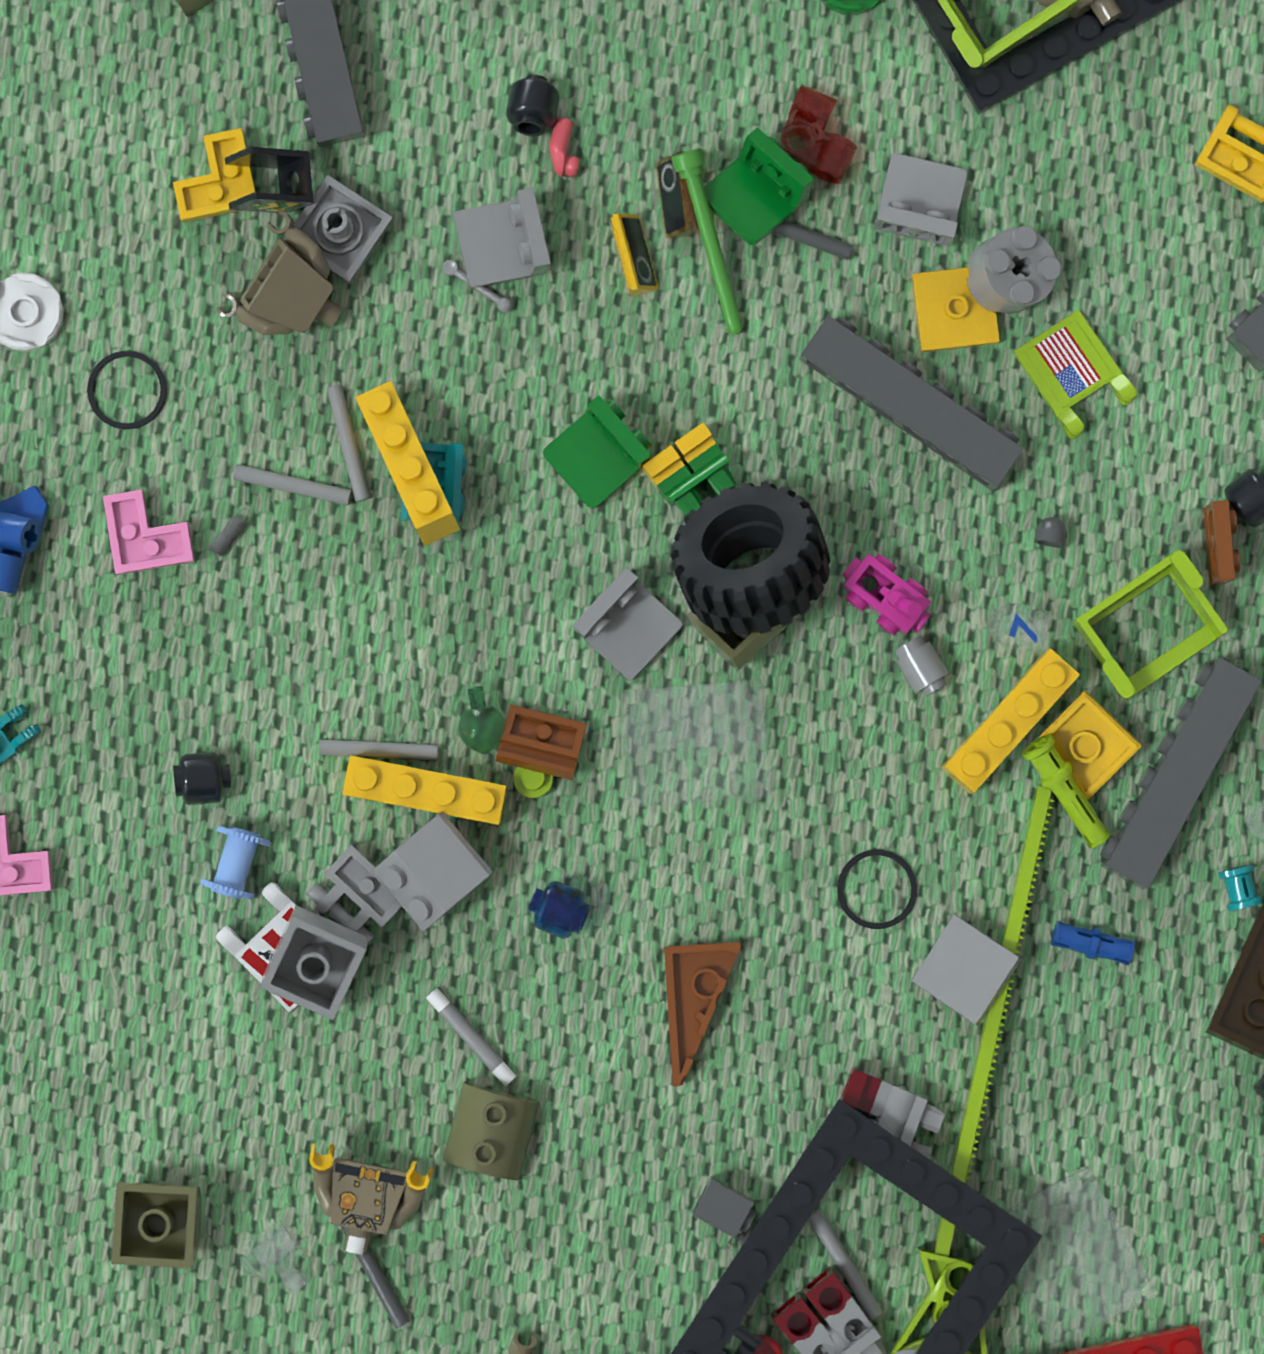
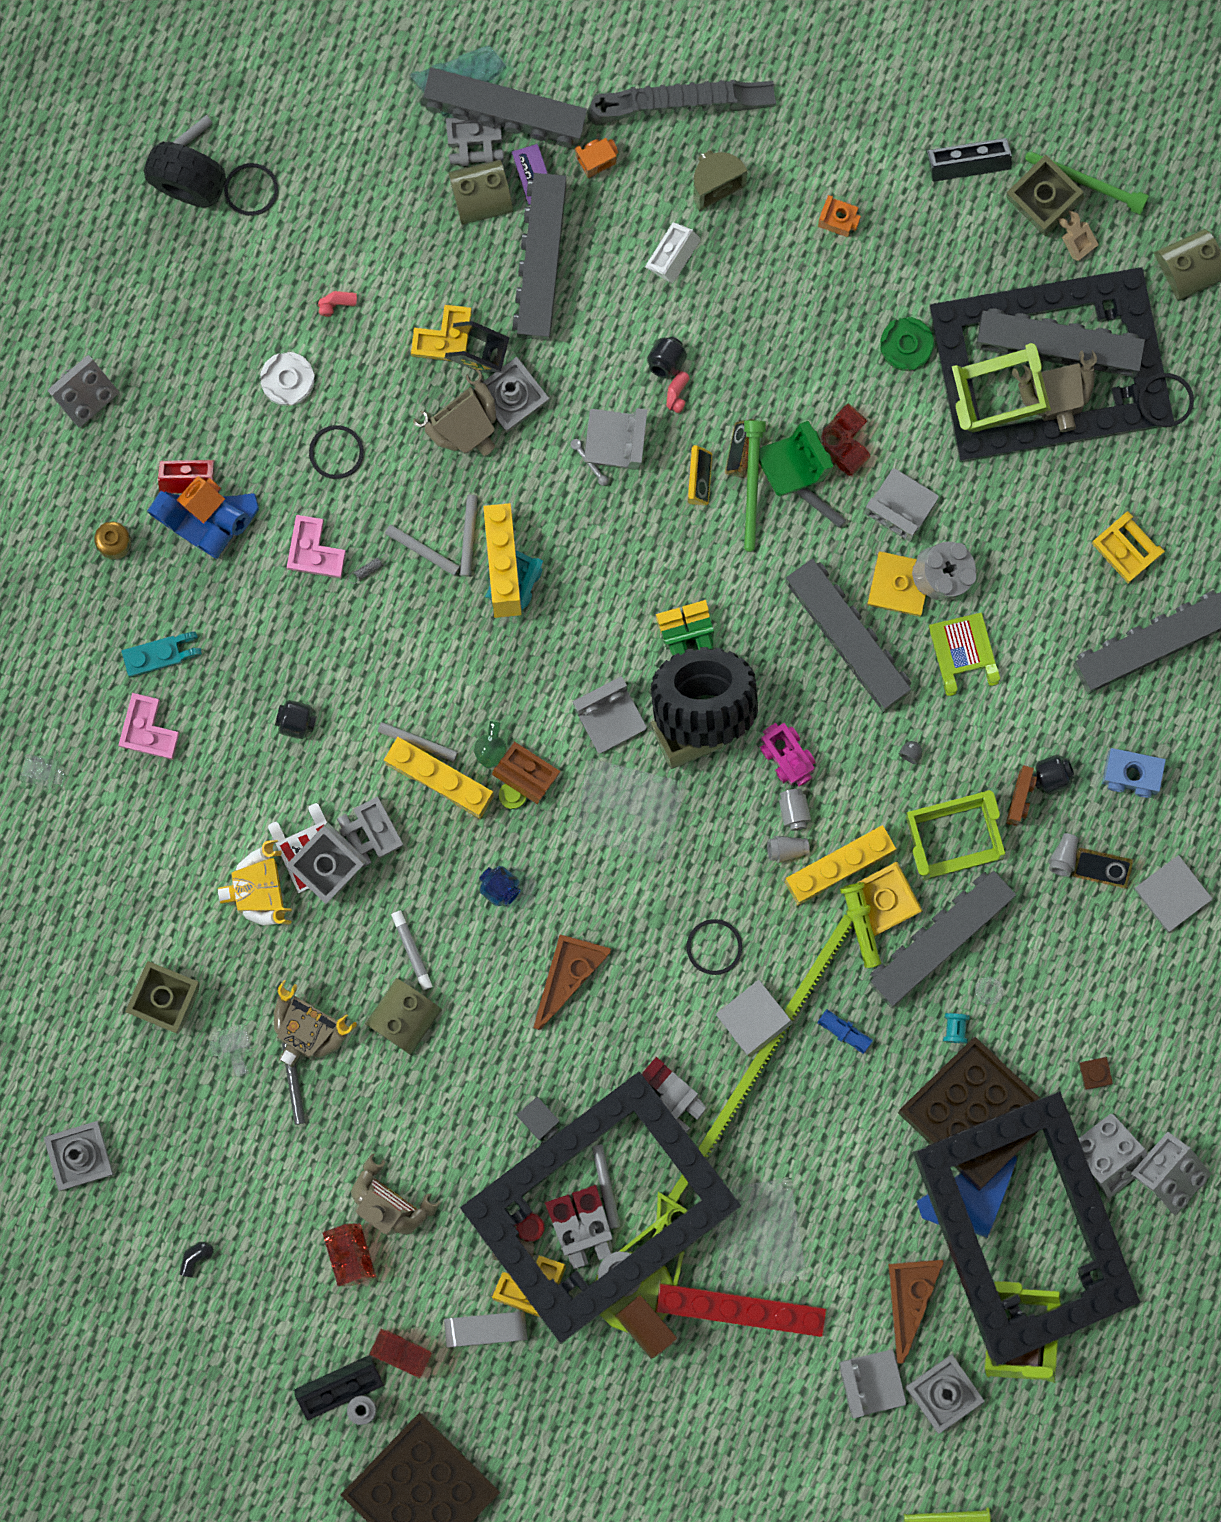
camera: 25 degrees right, 5 degrees down
(49, 180) = (335, 298): none -> coral arm
(232, 1027) = (257, 887): none -> torso
(235, 862) = (298, 781): light blue hose -> none
(432, 871) = (425, 831): light grey slope -> none
(598, 452) = (630, 597): green bracket -> none
(928, 722) = (786, 848): none -> light grey cone
(1019, 628) = (868, 806): clear brick -> none

